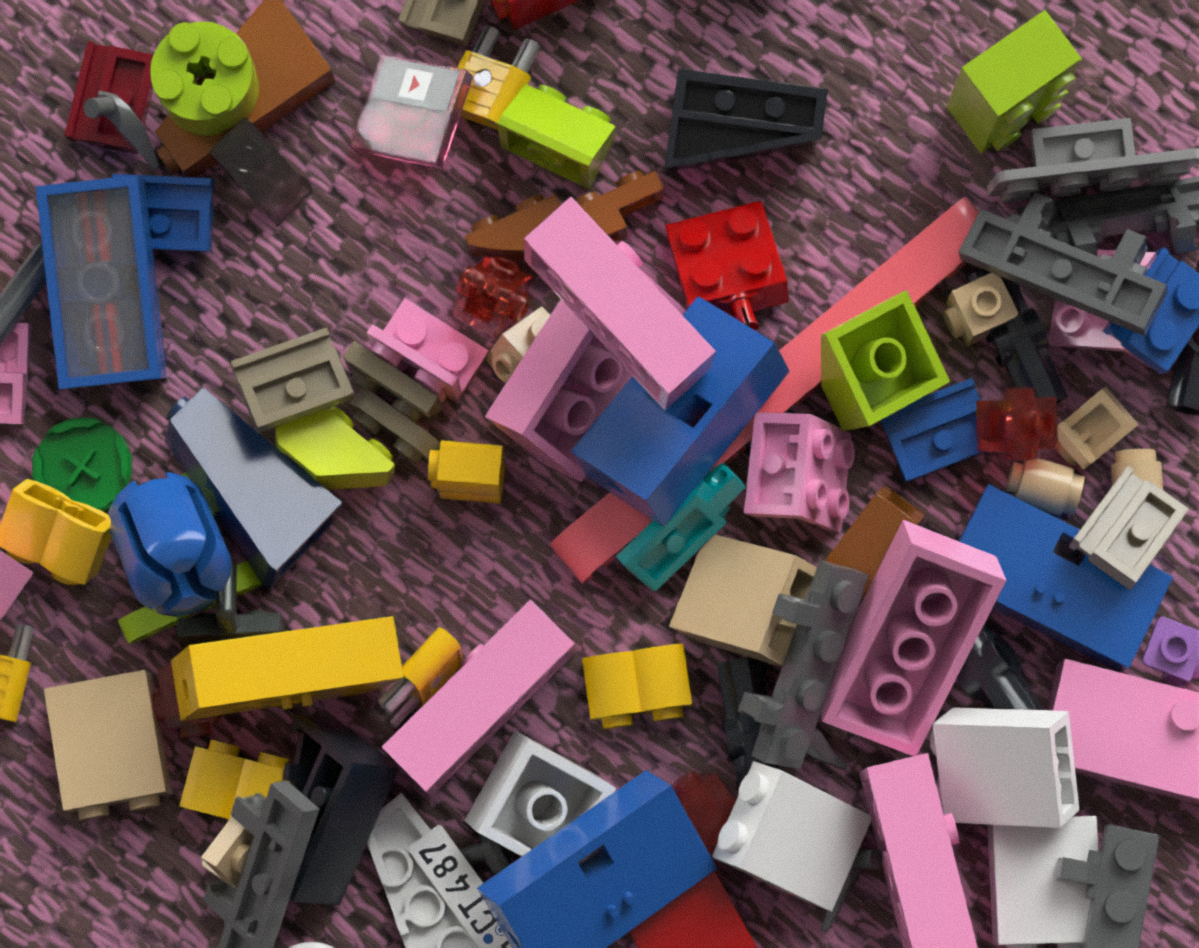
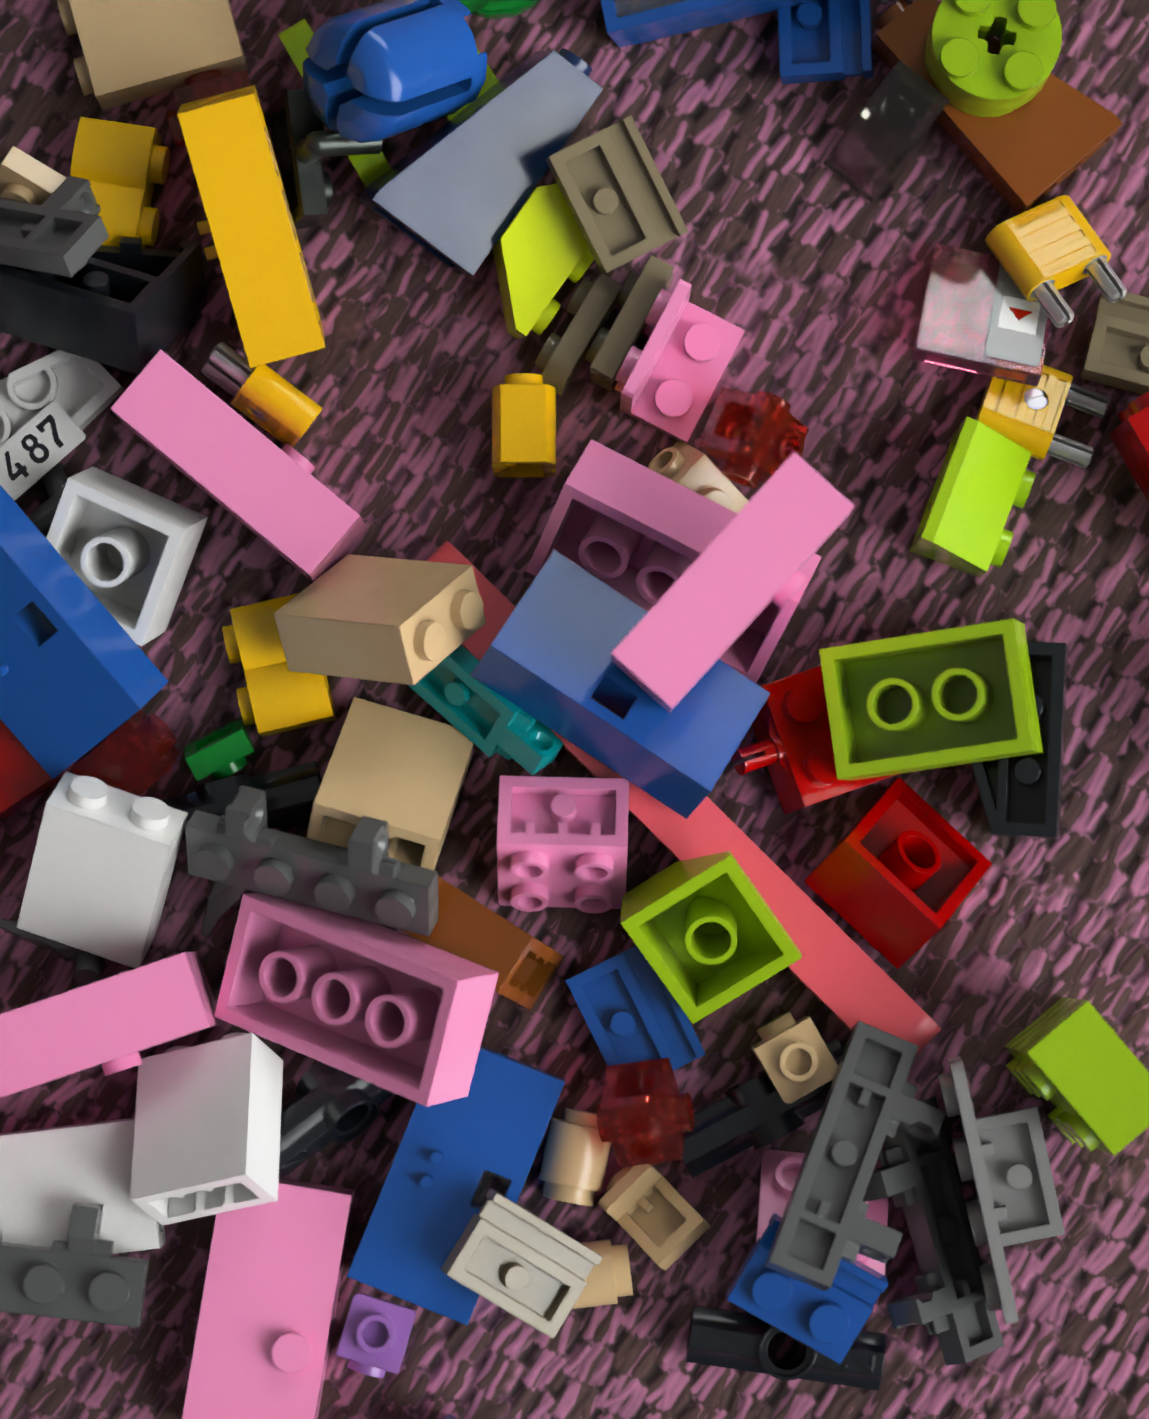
camera: 85 degrees right, 5 degrees up
(366, 56) = (1050, 251): none -> yellow piece
(507, 235) = (859, 552): dark orange slope -> none
(613, 592) = (380, 618): none -> tan brick
(702, 738) = (220, 751): none -> green plate
(717, 170) = (930, 700): none -> lime brick
(843, 218) = (898, 873): none -> red slope

